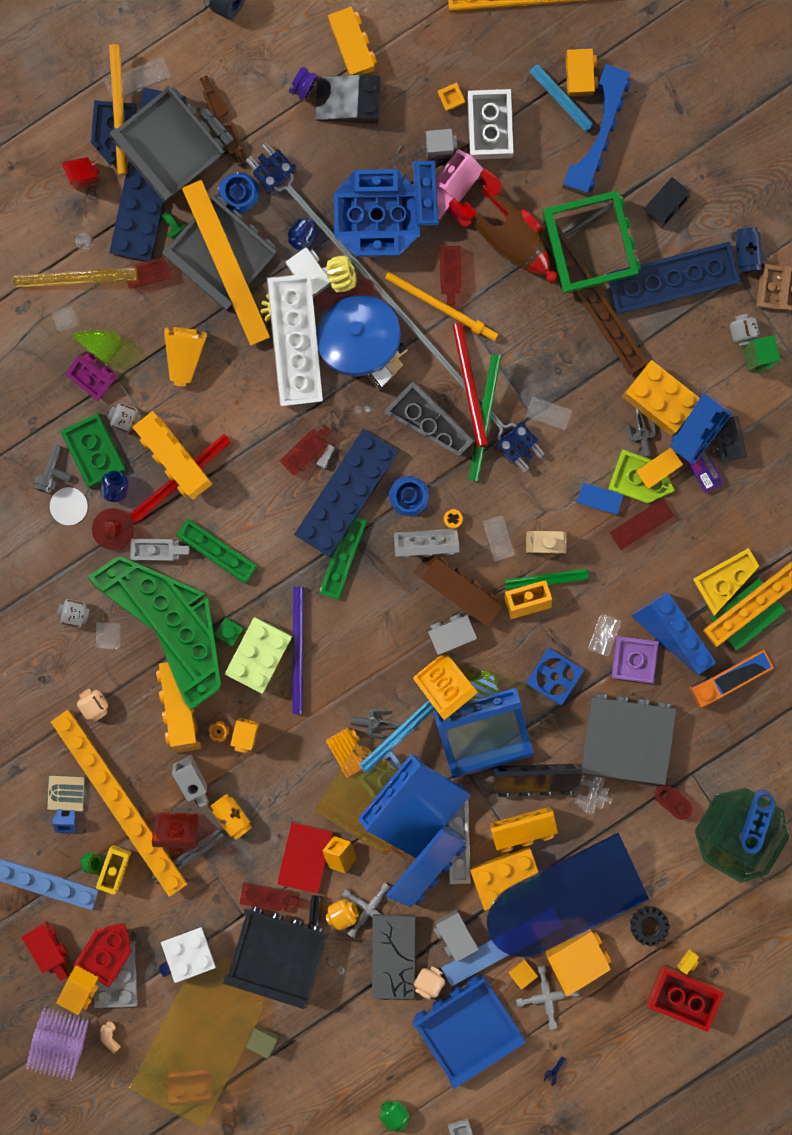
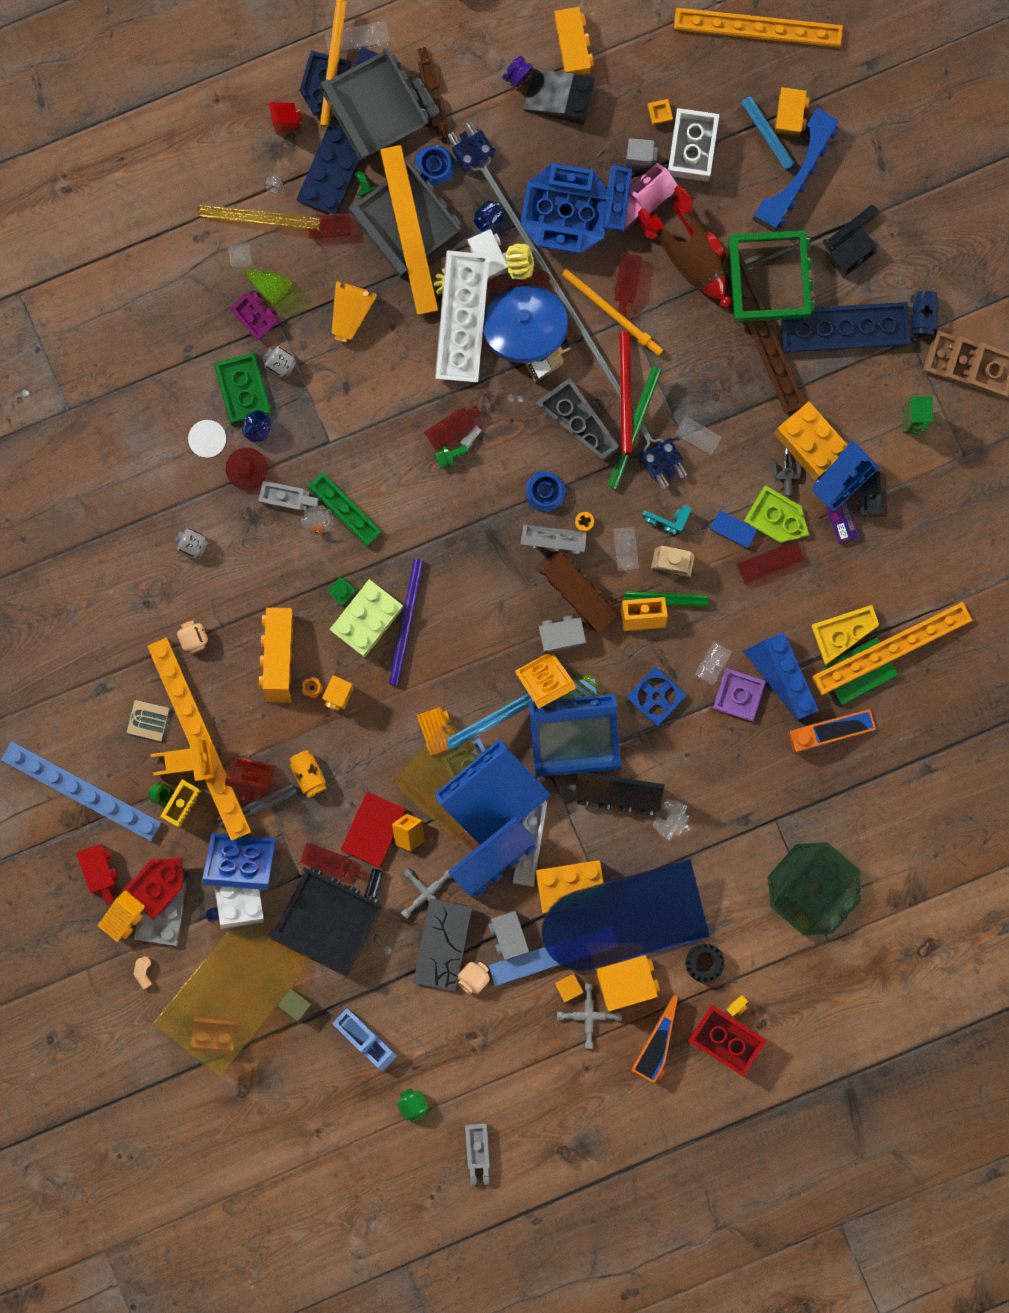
camera: 15 degrees right, 5 degrees down
(45, 483) = (189, 411): dark grey piece -> none
(57, 1043) = (91, 965): lavender piece -> none
(64, 824) = (140, 749): blue tile -> none
(108, 635) = (221, 572): clear panel -> none
(112, 827) = (195, 758): none -> light orange piece
(167, 610) = (284, 555): green wing -> none
(171, 486) = (322, 431): red axle -> none
(172, 455) = (320, 406): light orange wedge -> none
(182, 917) = (239, 862): none -> blue plate
(187, 774) = (272, 721): light grey torso -> none
(192, 567) = (317, 520): none -> clear head
(305, 481) = (446, 457): none -> green piece
(335, 1062) = (364, 1039): none -> medium blue slope
(342, 560) = (468, 539): green tile -> none
(342, 914) = (399, 892): light orange head -> none
(346, 493) = (484, 476): dark blue plate -> none
(374, 723) = (467, 708): dark grey piece -> none
(468, 1030) = (503, 1033): blue panel -> none
(524, 829) = (597, 841): light orange slope -> none
(546, 498) = (680, 518): none -> teal bracket
(554, 1071) = (583, 1091): clear blue hand -> none
(616, 1024) = (654, 1053): none -> slope
(628, 739) = (717, 771): dark grey panel -> none
(659, 468) = (797, 509): light orange tile -> none
(660, 178) = (851, 228): none -> black axle
(672, 801) = (751, 842): clear red plate -> none
(744, 329) = (905, 388): light grey head -> none
(753, 814) = (833, 879): blue beam -> none

